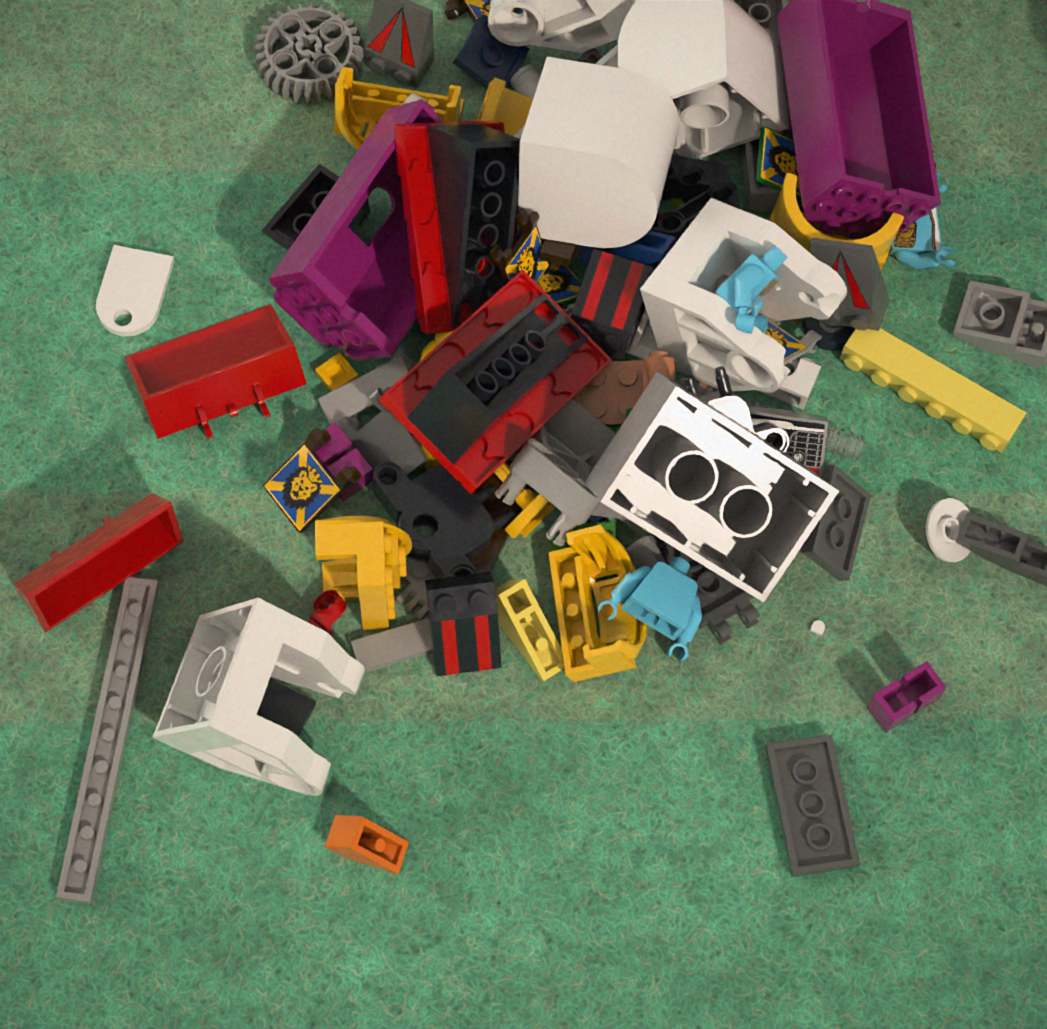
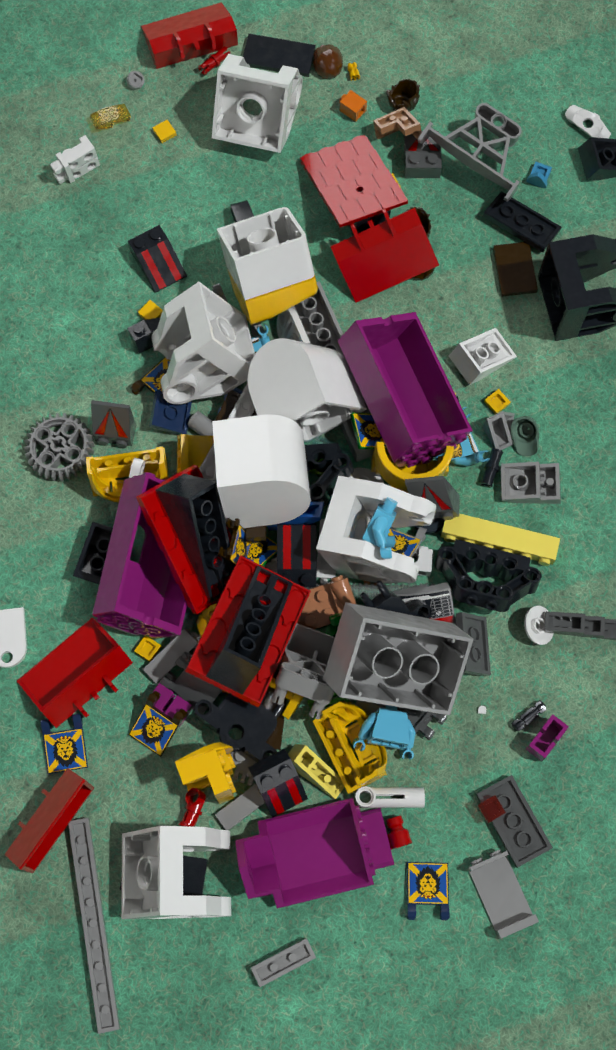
camera: 15 degrees left, 5 degrees up
(161, 469) = (64, 748): none -> flag
(366, 843) = (267, 936): orange slope -> none
(376, 892) = (283, 962): none -> light grey plate
(481, 744) = (314, 853): none -> magenta panel
(622, 767) = (399, 836): none -> red piece
(629, 705) = (412, 797): none -> white piece
(642, 856) = (427, 886): none -> flag
(754, 907) = (501, 894): none -> light grey panel
(782, 773) = (491, 809): none -> clear red tile
(888, 659) = (528, 716): none -> black axle
(936, 437) = (509, 567): none -> black brick
(953, 283) = (491, 467): none -> black pin
(985, 231) = (499, 429): none -> light grey slope
(992, 120) = (481, 355): none -> white slope
(994, 194) = (497, 401): none -> yellow tile
(1019, 262) = (525, 440): none -> sand green cap

